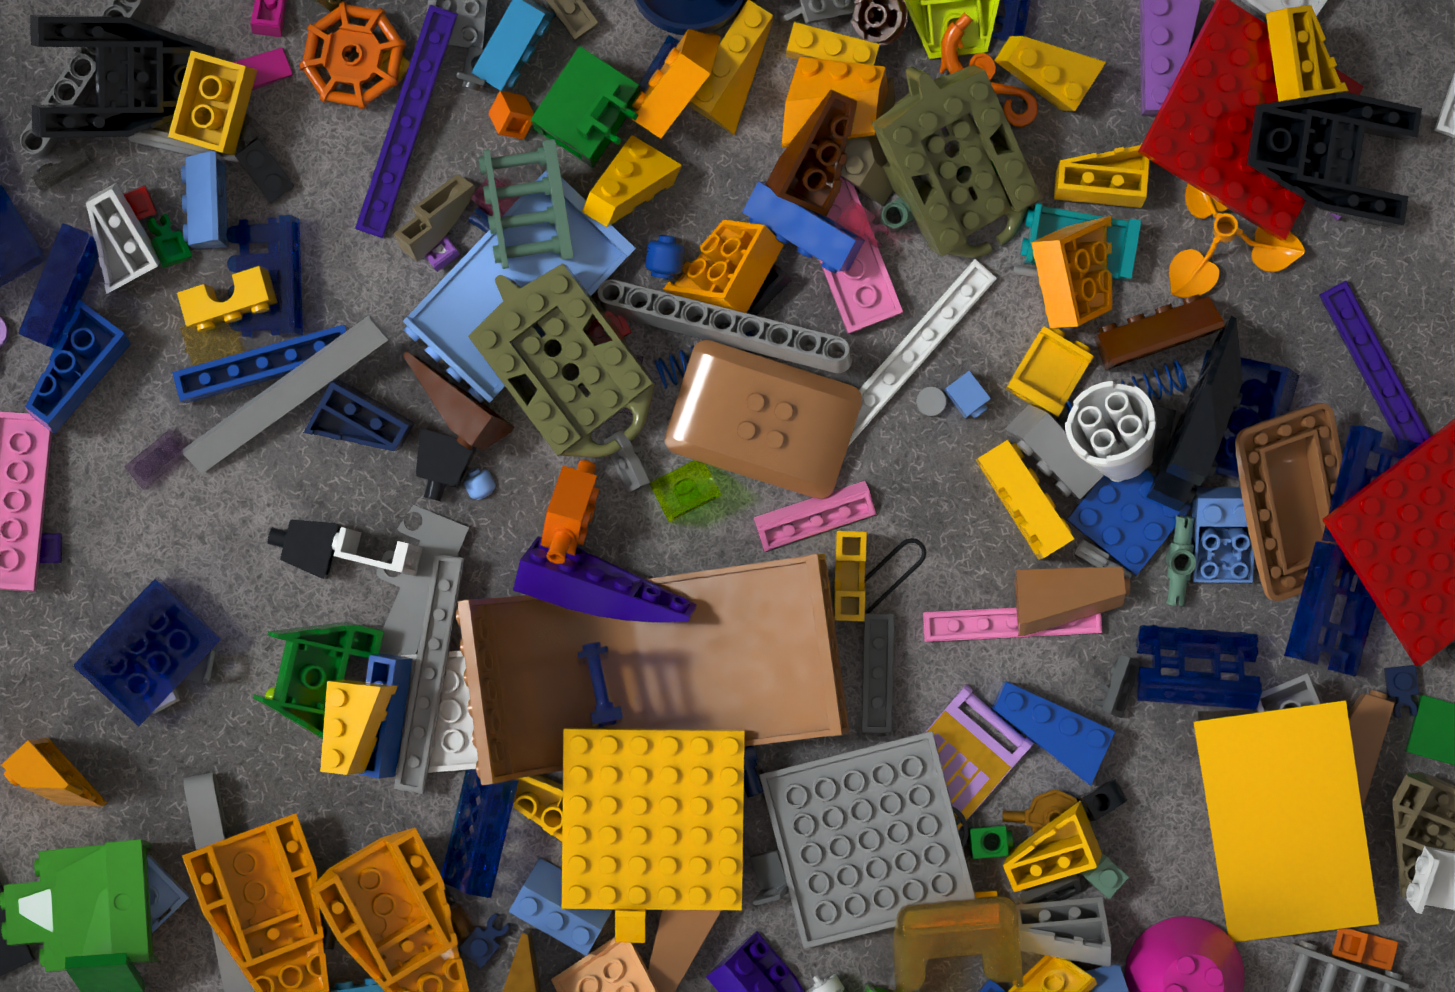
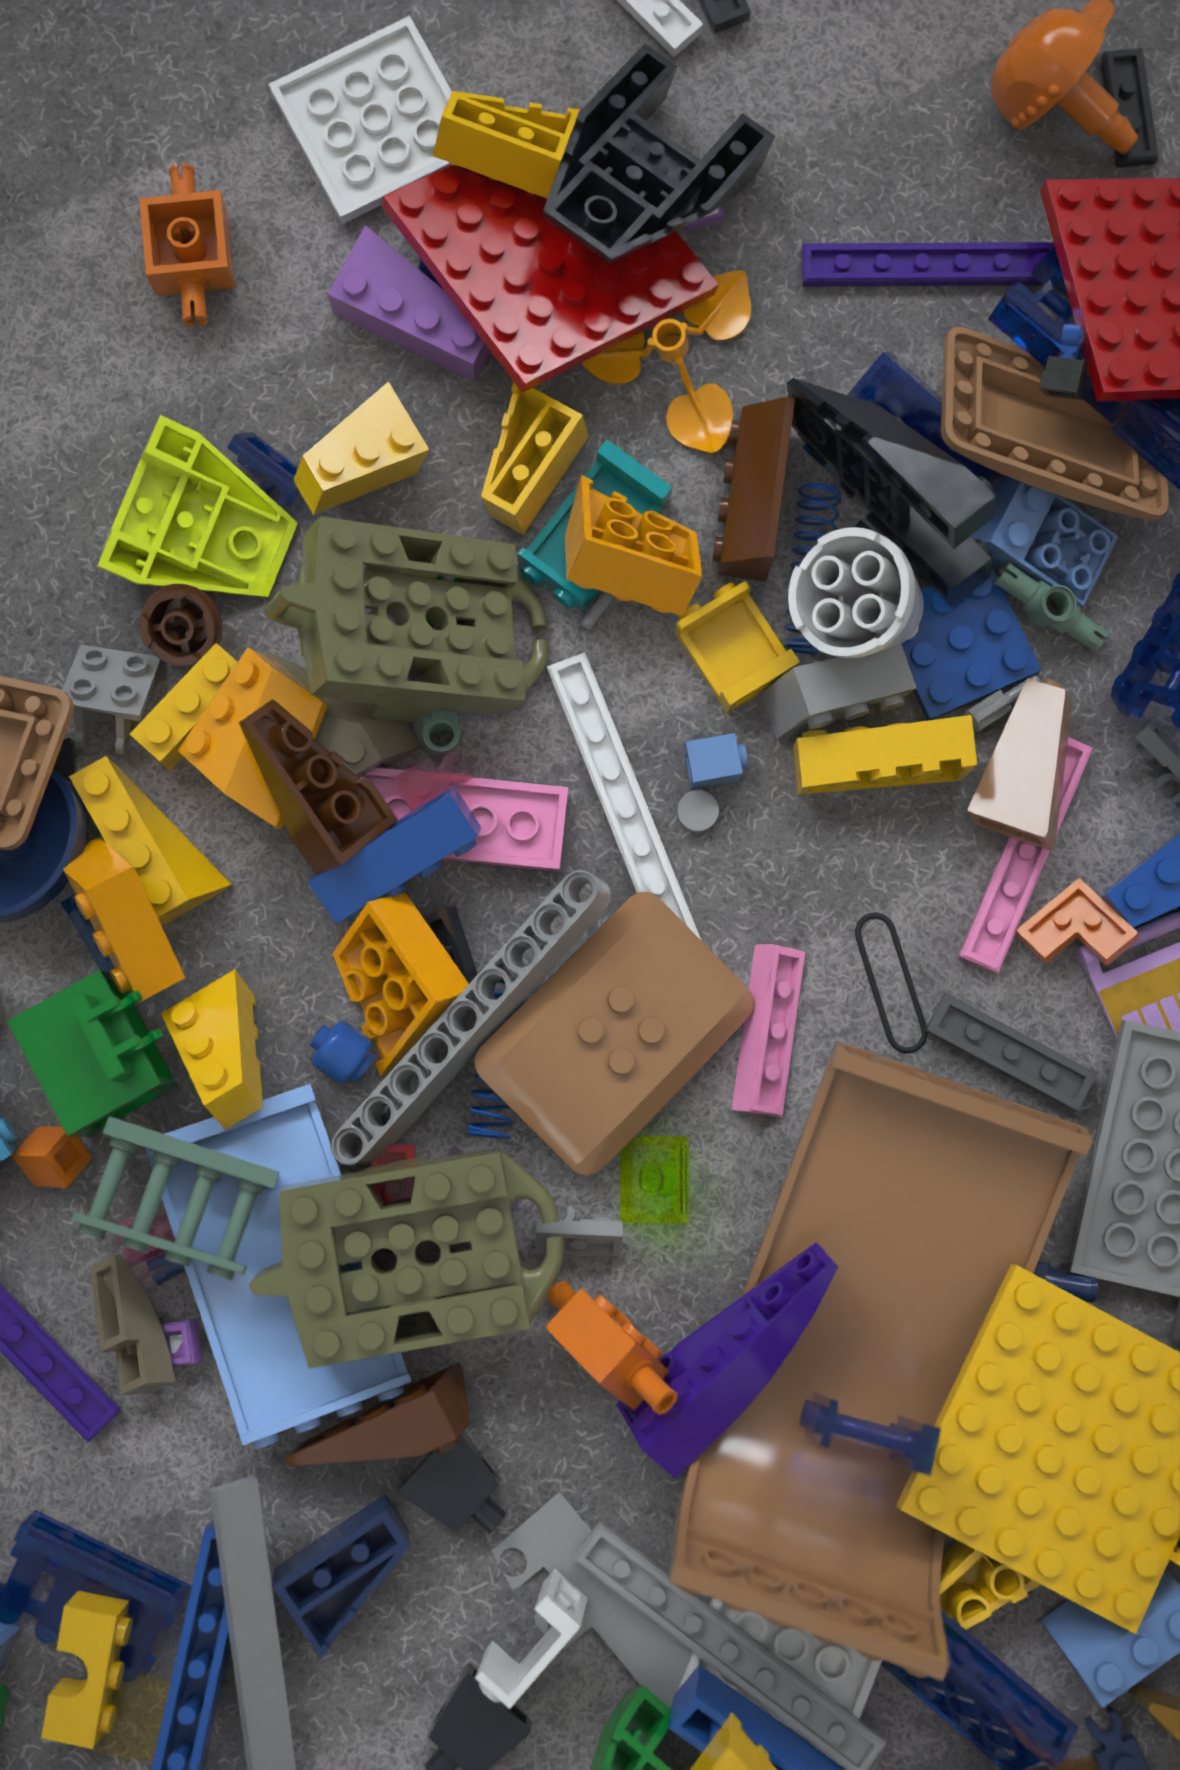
camera: 70 degrees left, 5 degrees down
(479, 483) = (508, 1446): light blue piece -> none
(850, 576) = (870, 1025): yellow arch -> none
(950, 61) = (284, 571): orange plant -> none
(984, 670) = (1080, 915): none -> orange plate
(1329, 489) = (1065, 374): none -> pearl dark grey piece

